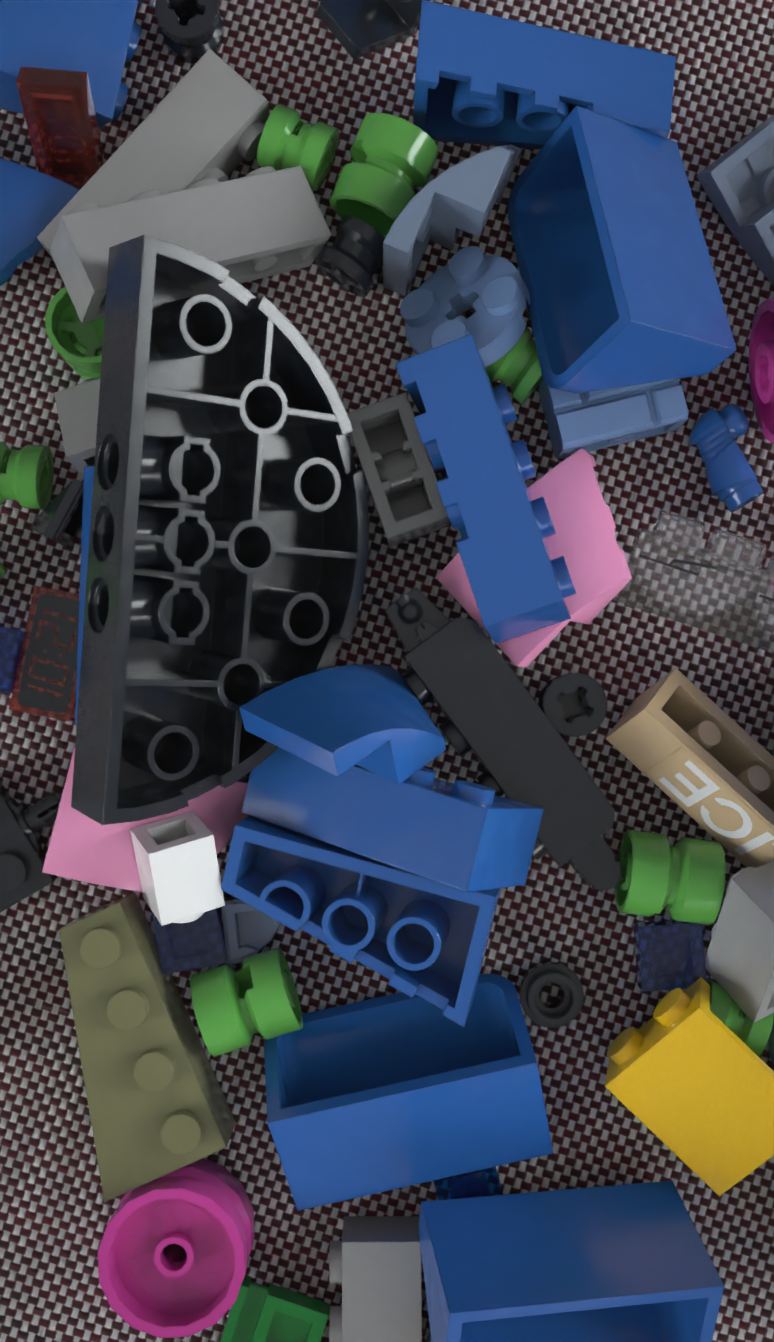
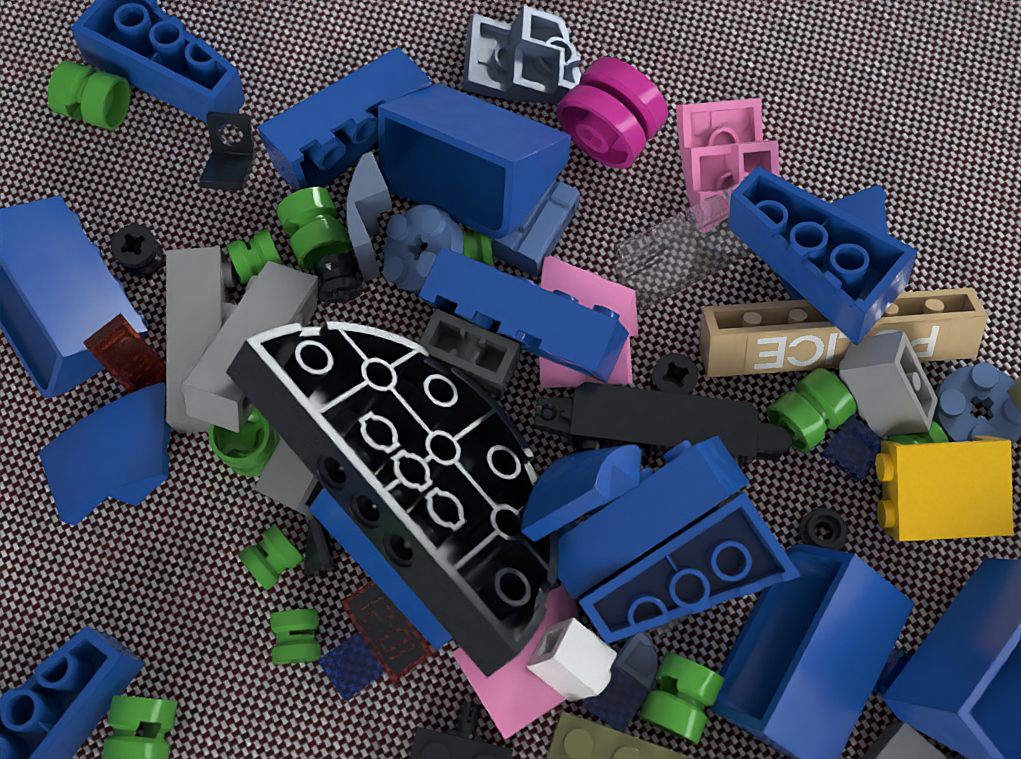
camera: 45 degrees left, 15 degrees down
(725, 464) = (617, 197): blue arm -> none

